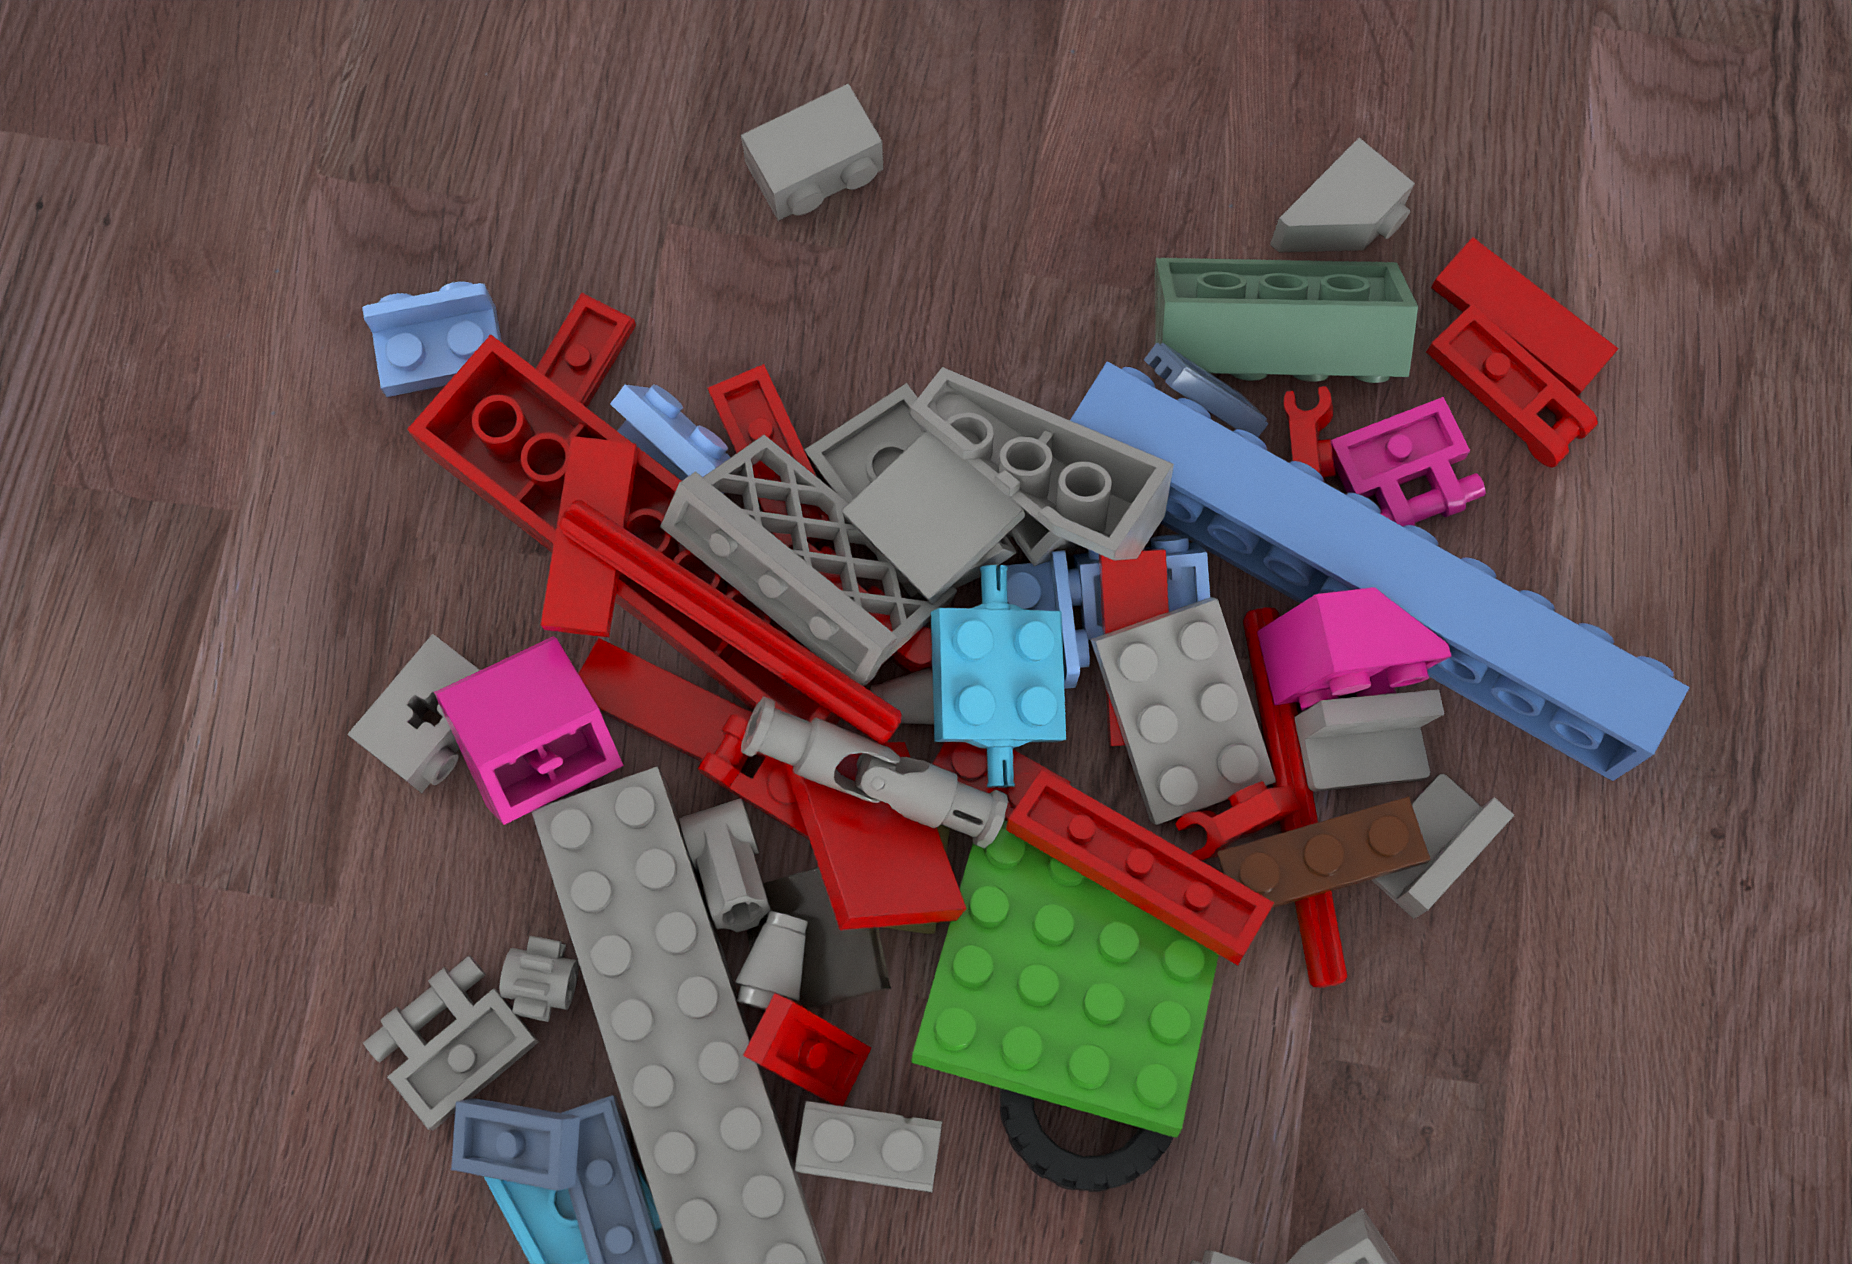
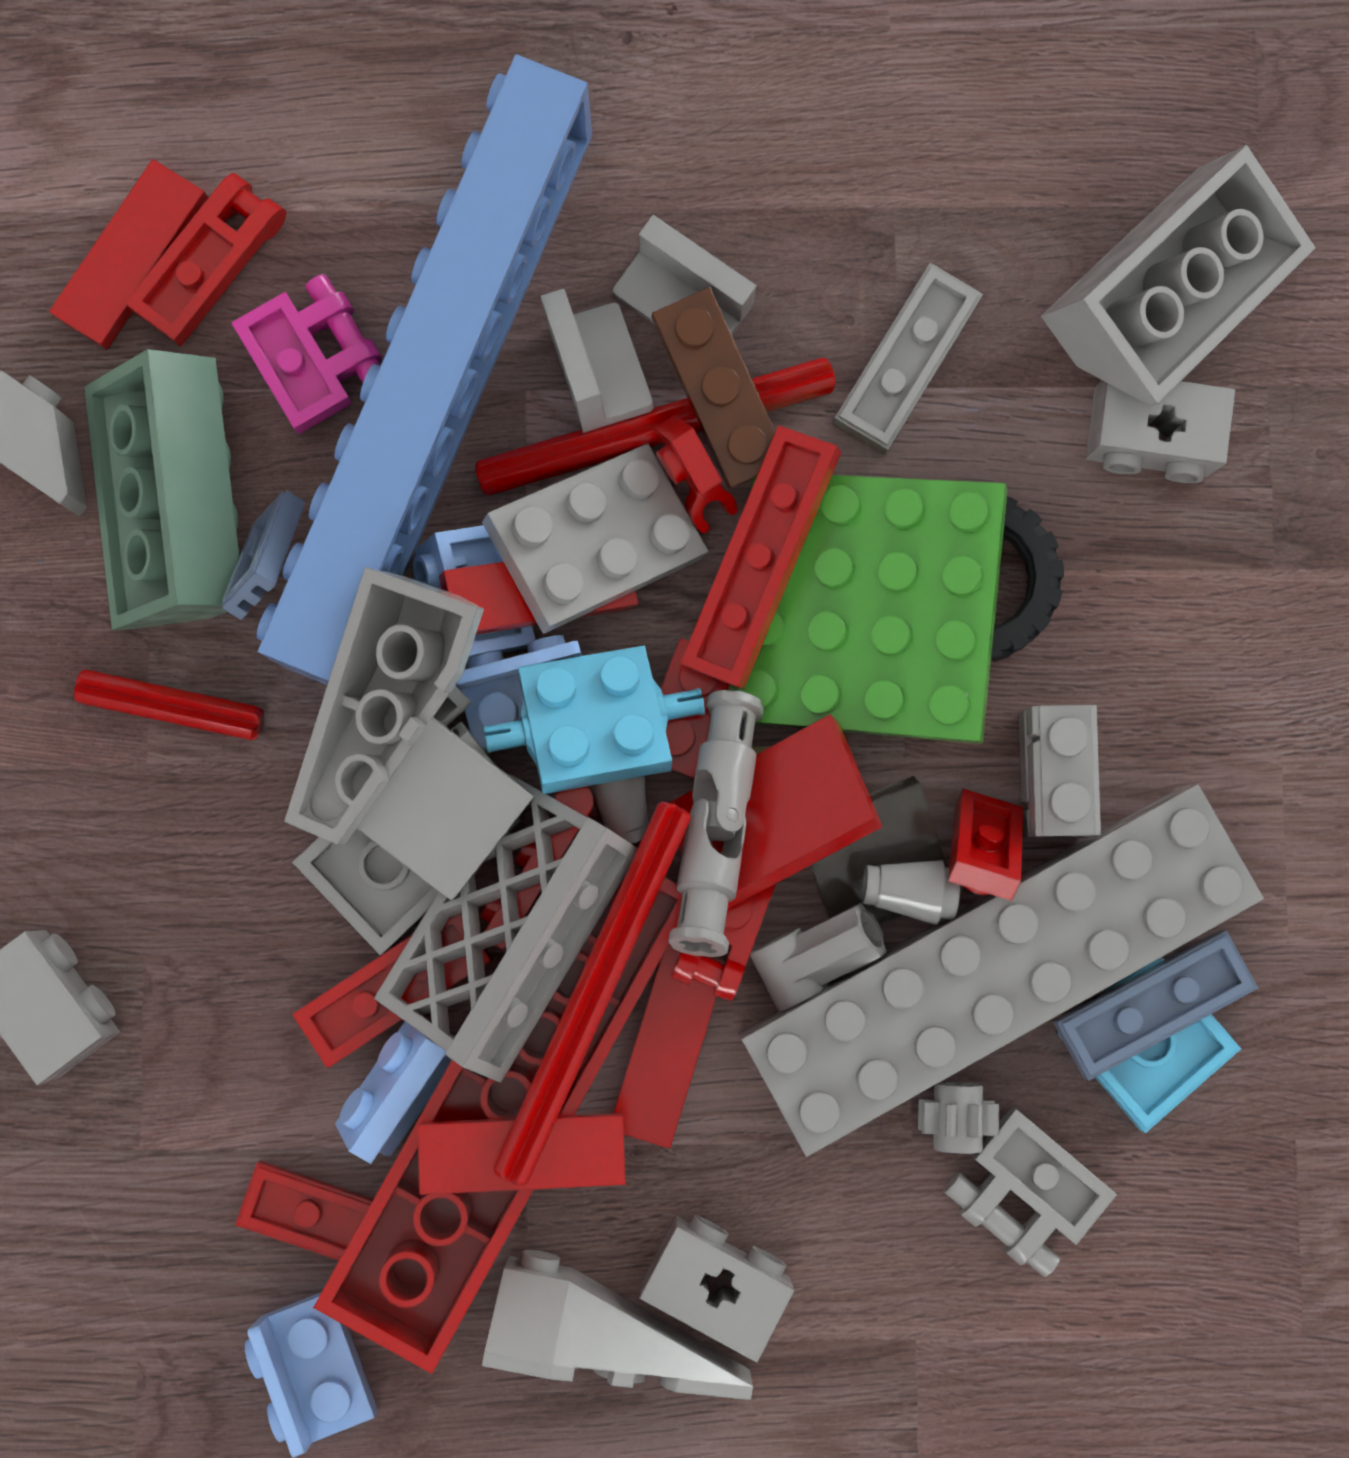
camera: 105 degrees left, 10 degrees up
(427, 570) = (562, 1321): none -> light grey wedge
(515, 1143) = (1120, 1105): sand blue plate -> none
(528, 730) = (724, 1177): dark pink slope -> none
(1075, 298) = (168, 704): none -> red axle
(1305, 432) = (313, 444): red plate -> none
(1338, 1071) = (907, 358): none -> light grey tile
(1346, 647) = (521, 384): dark pink slope -> none

